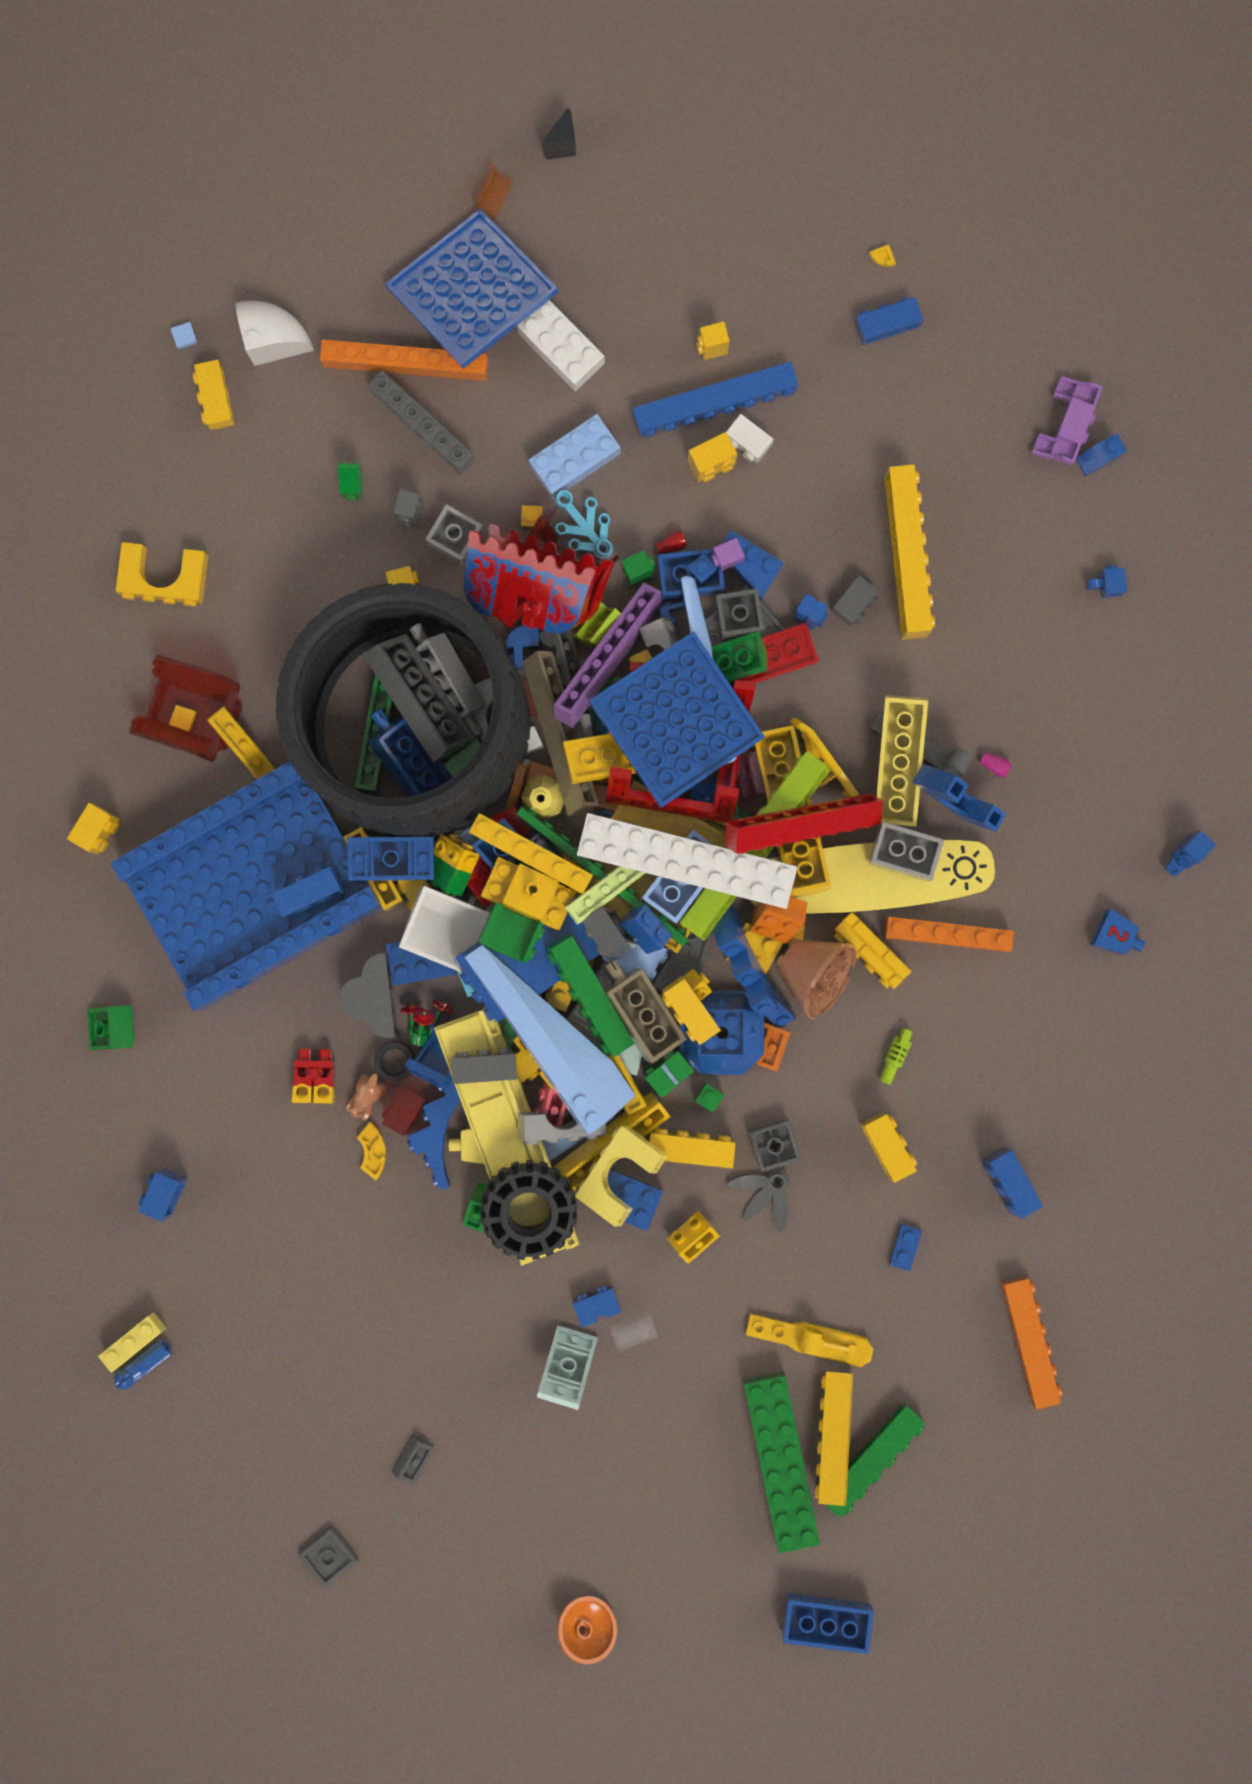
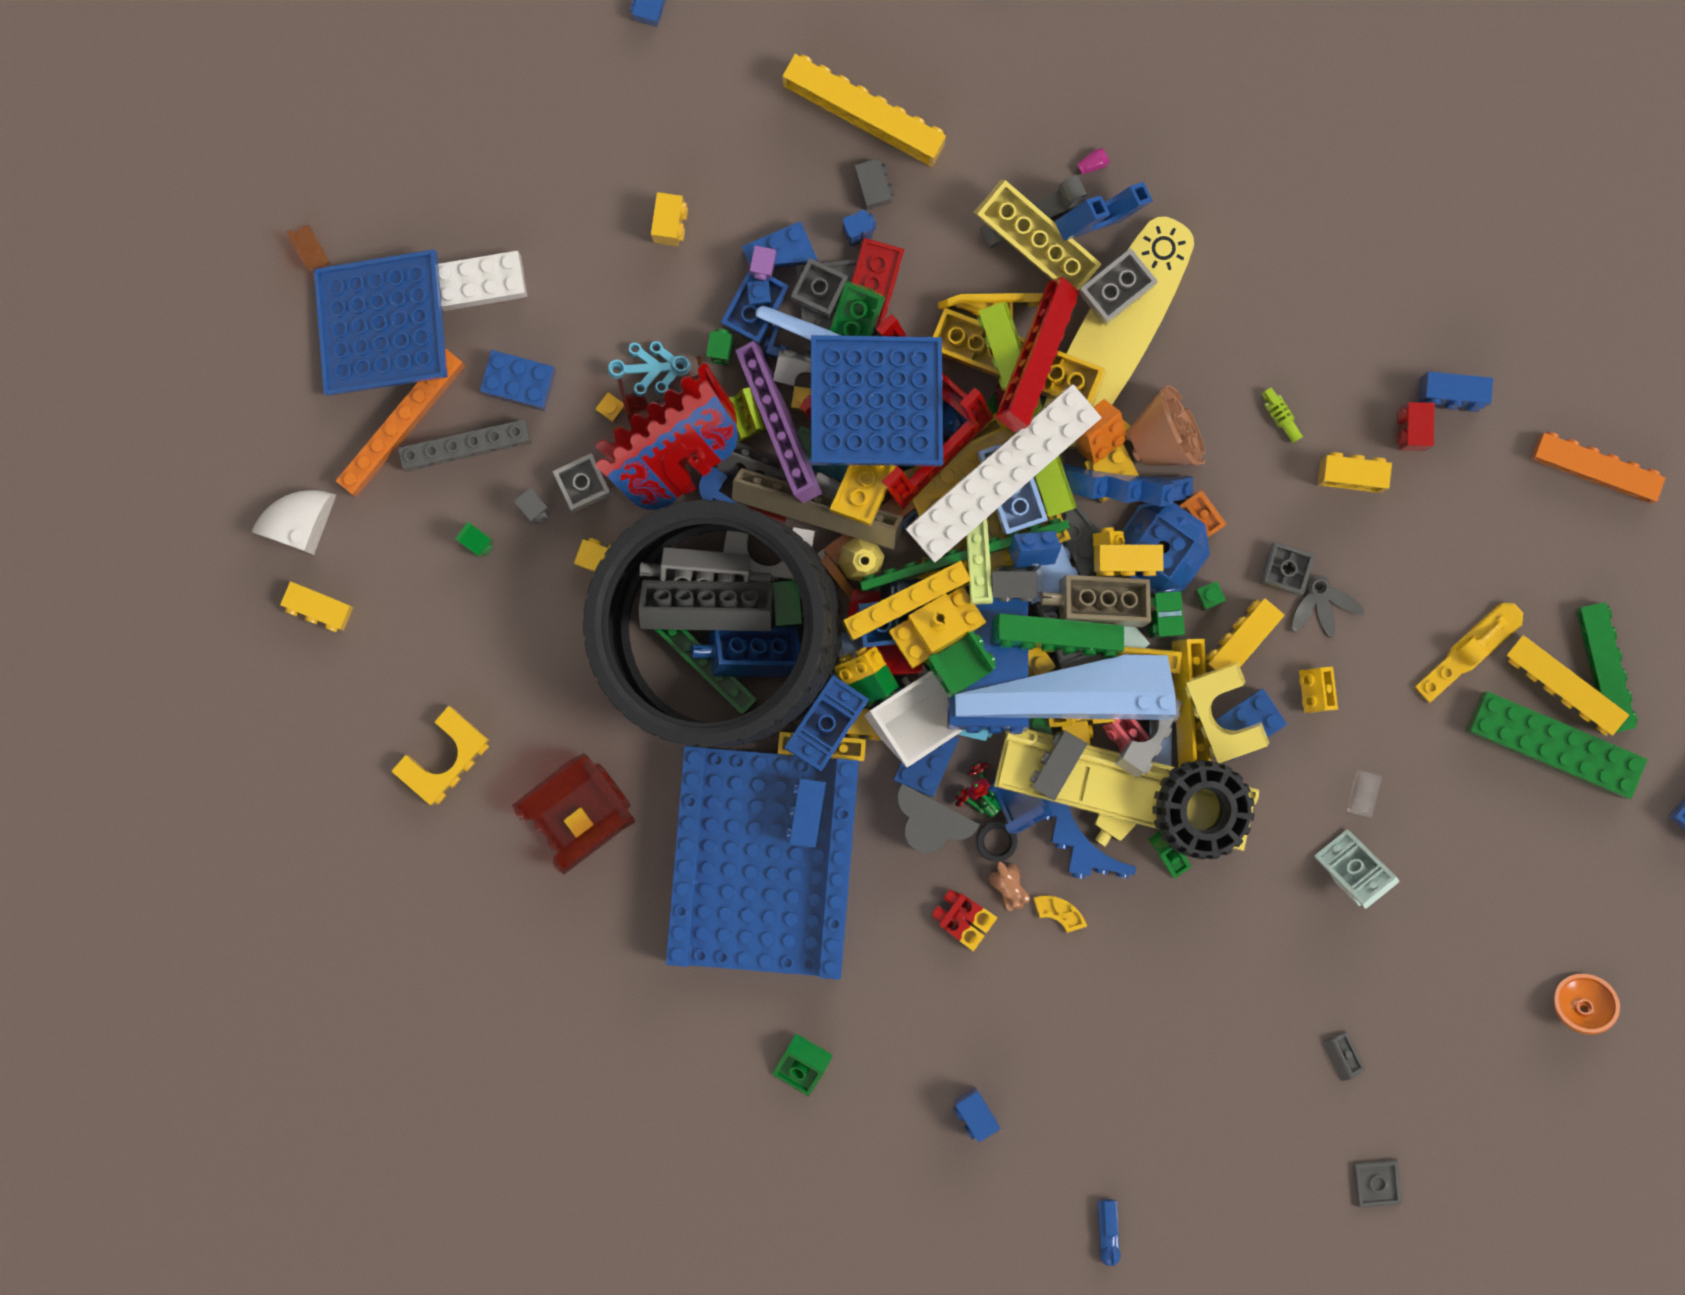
camera: 55 degrees left, 0 degrees up
(94, 829) = (623, 962): yellow brick -> none
(132, 1342) = (1084, 1226): light yellow brick -> none
(184, 335) = (246, 597): light blue tile -> none
(240, 743) = (637, 787): yellow tile -> none
(404, 1110) = (1045, 860): clear red brick -> none
(502, 428) = (518, 380): none -> blue brick
(561, 138) = (304, 156): black slope -> none
(574, 456) = (585, 335): light blue brick -> none
(596, 1304) = (1319, 810): blue brick -> none
(672, 543) = (716, 303): red cone -> none
(713, 341) = (568, 149): yellow brick -> none
(715, 399) = (618, 182): blue brick -> none
(749, 439) = (673, 177): white brick -> none
(749, 777) = (963, 373): clear pink slope -> none
(872, 951) = (1180, 374): yellow brick -> none
(905, 1247) = (1447, 518): blue plate -> none
(948, 934) = (1210, 300): orange brick -> none
(961, 1171) = (1416, 426): none -> red brick
(1117, 934) = (1306, 160): blue torso -> none
(1189, 852) = (1279, 51): blue hinge -> none

